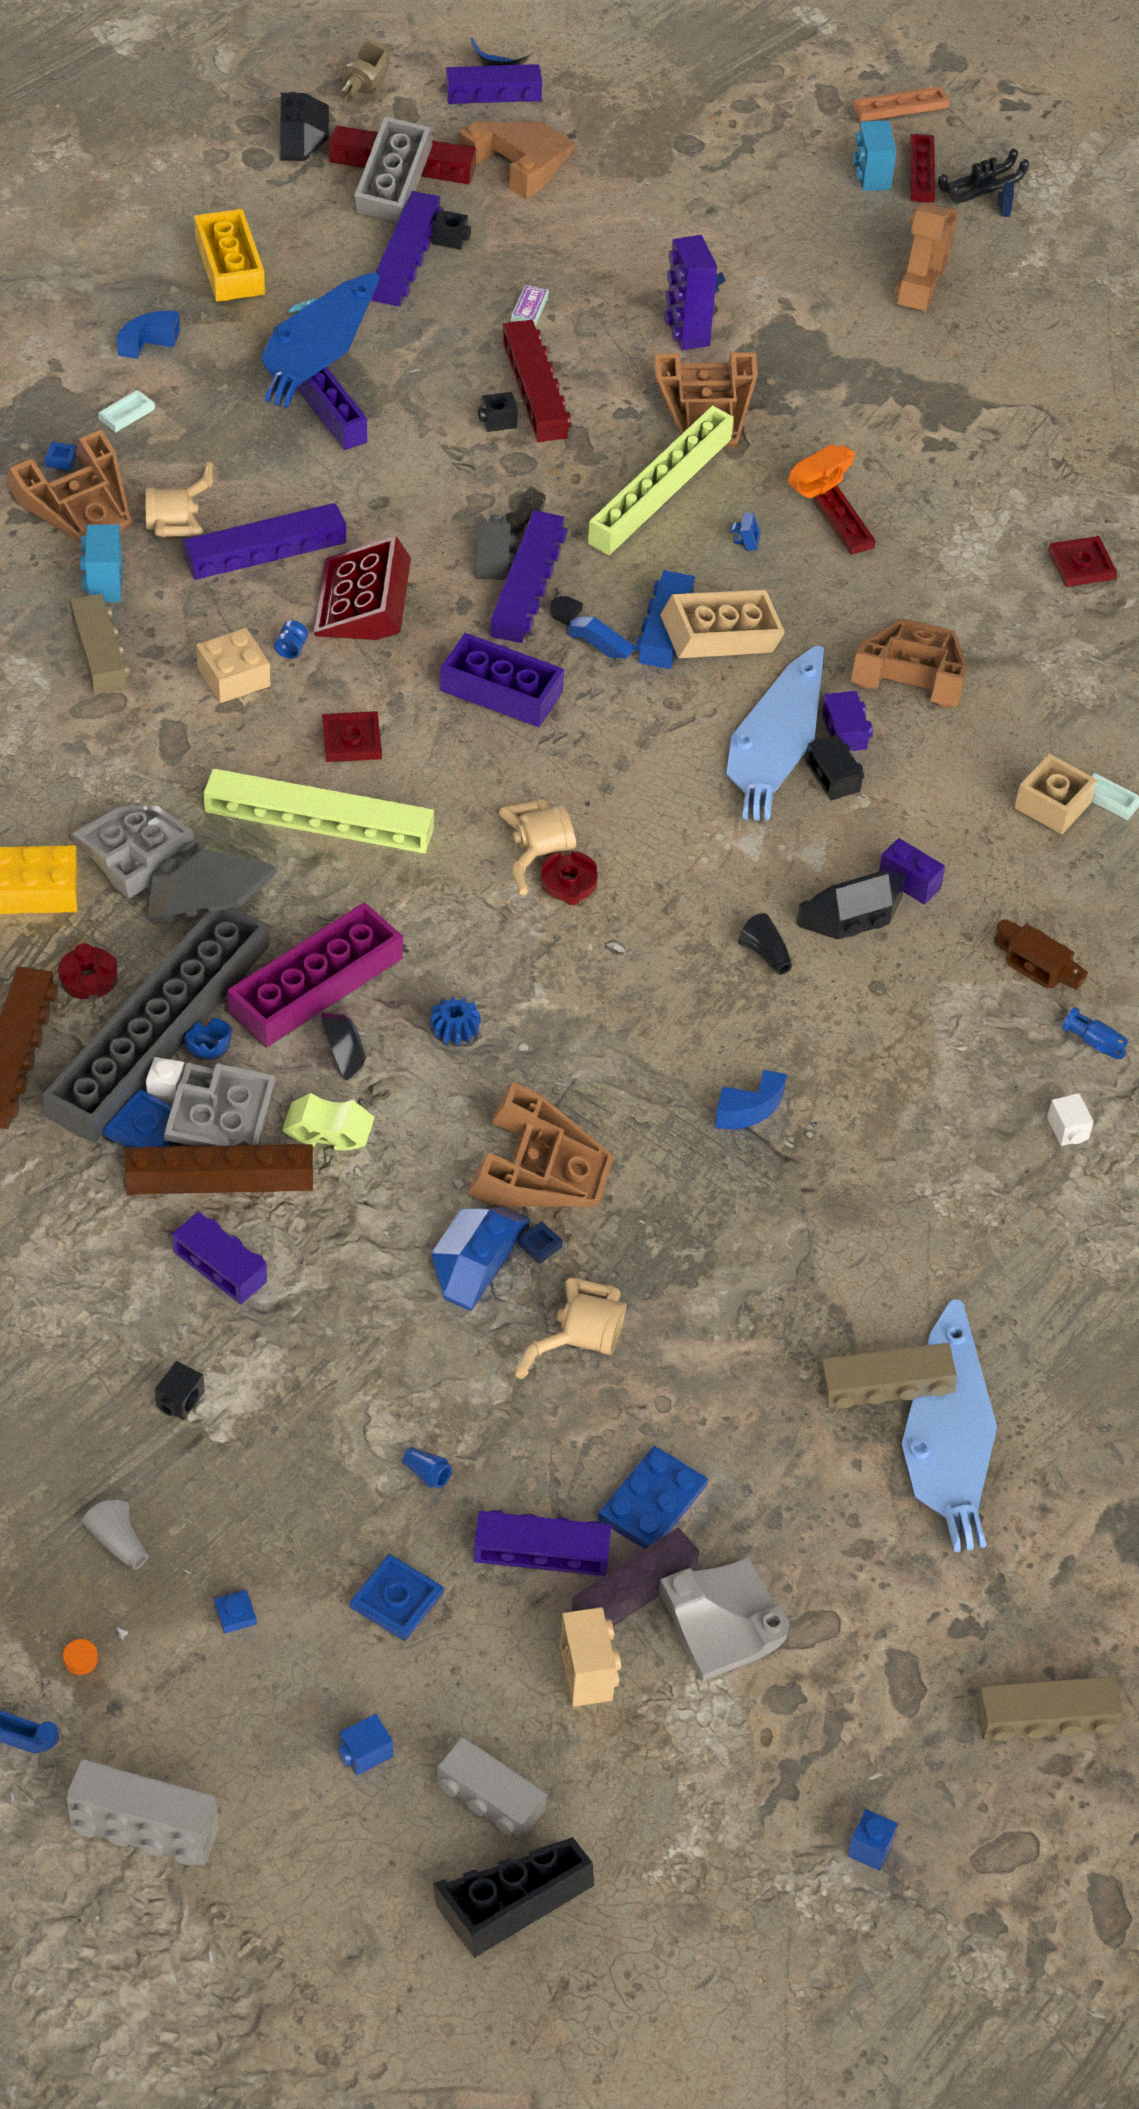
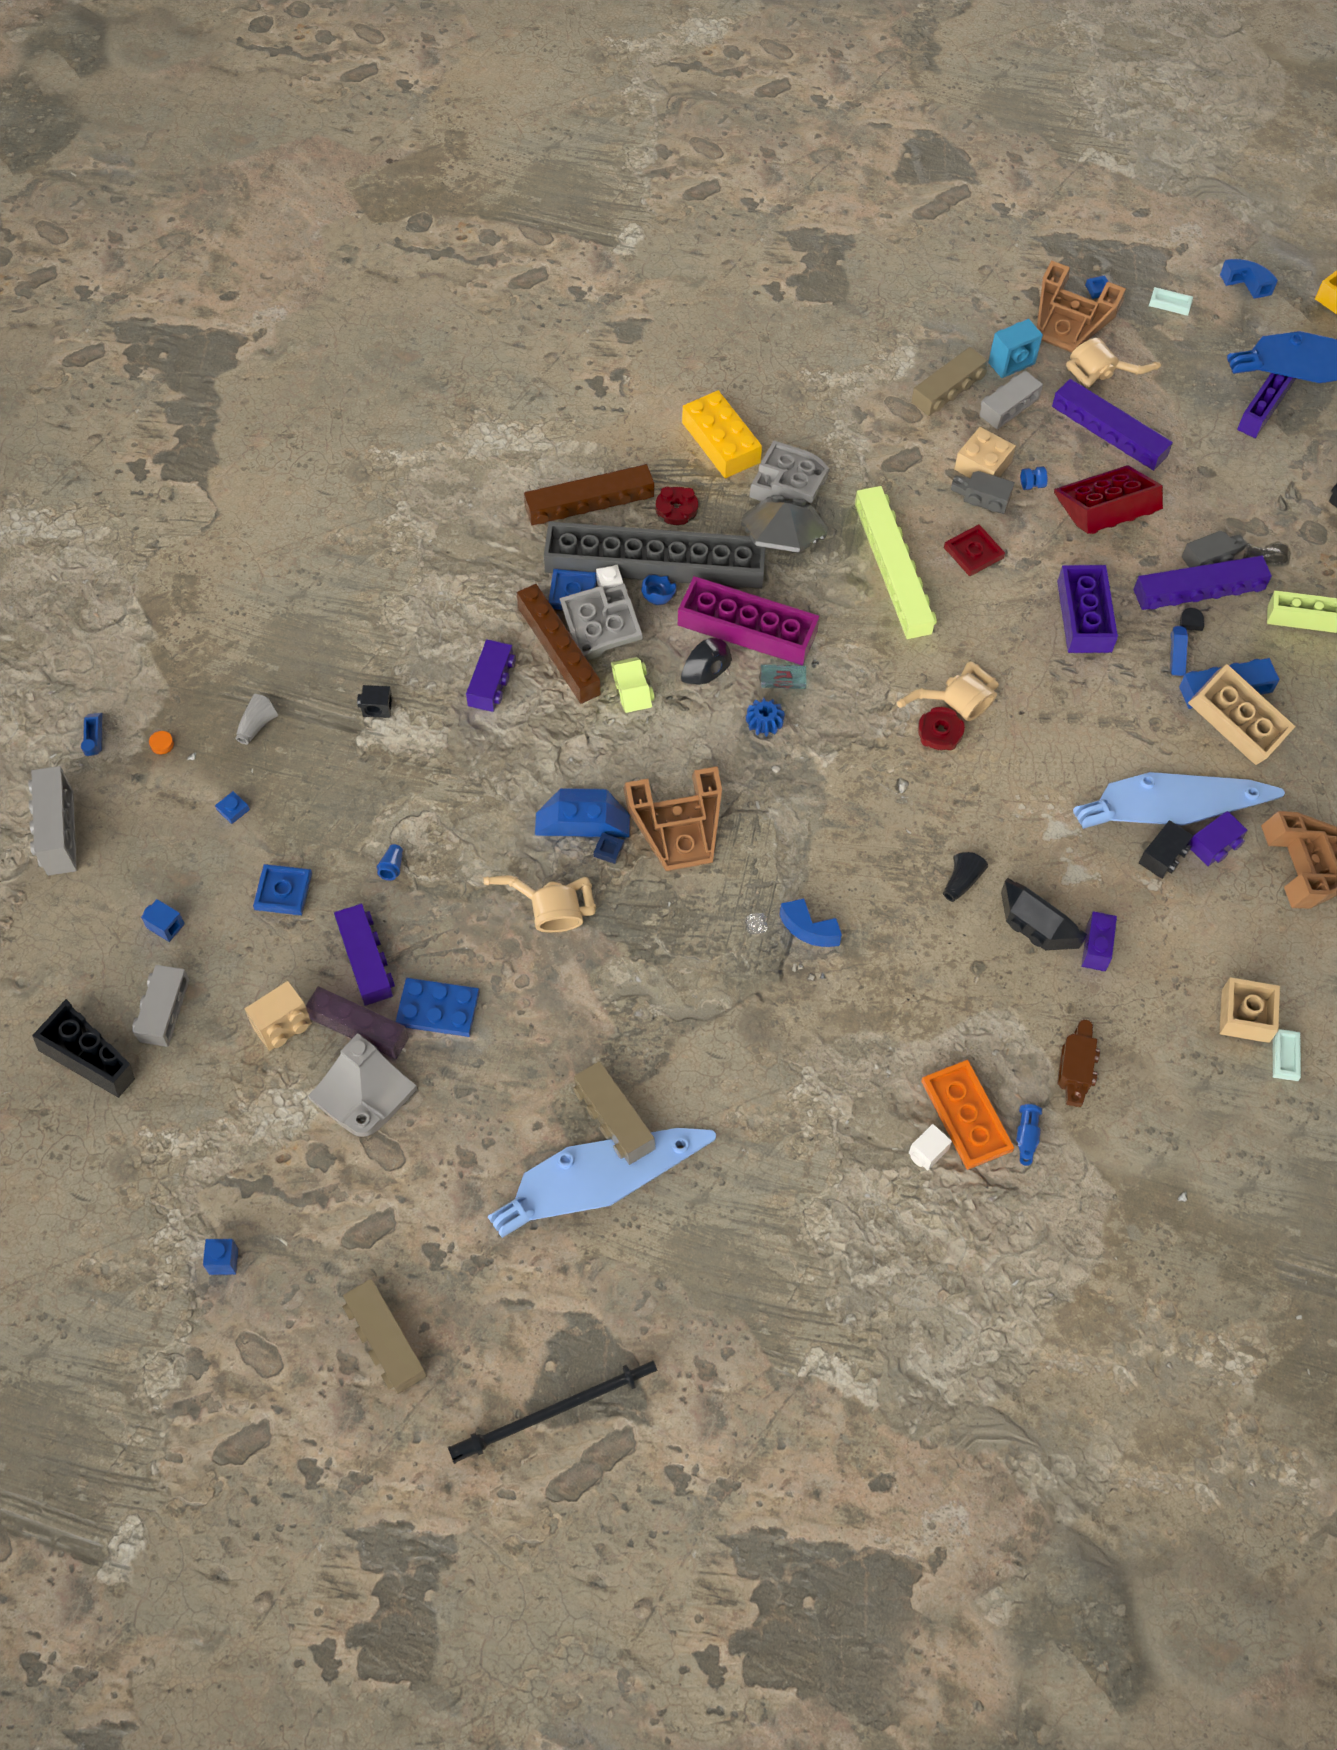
camera: 65 degrees right, 10 degrees up
(165, 605) = (1010, 399): none -> light grey brick
(279, 687) = (984, 490): none -> dark grey hinge
(405, 982) = (783, 676): none -> clear light blue tile
(721, 1148) = (756, 923): none -> clear bush
(1047, 1072) = (967, 1114): none -> orange plate

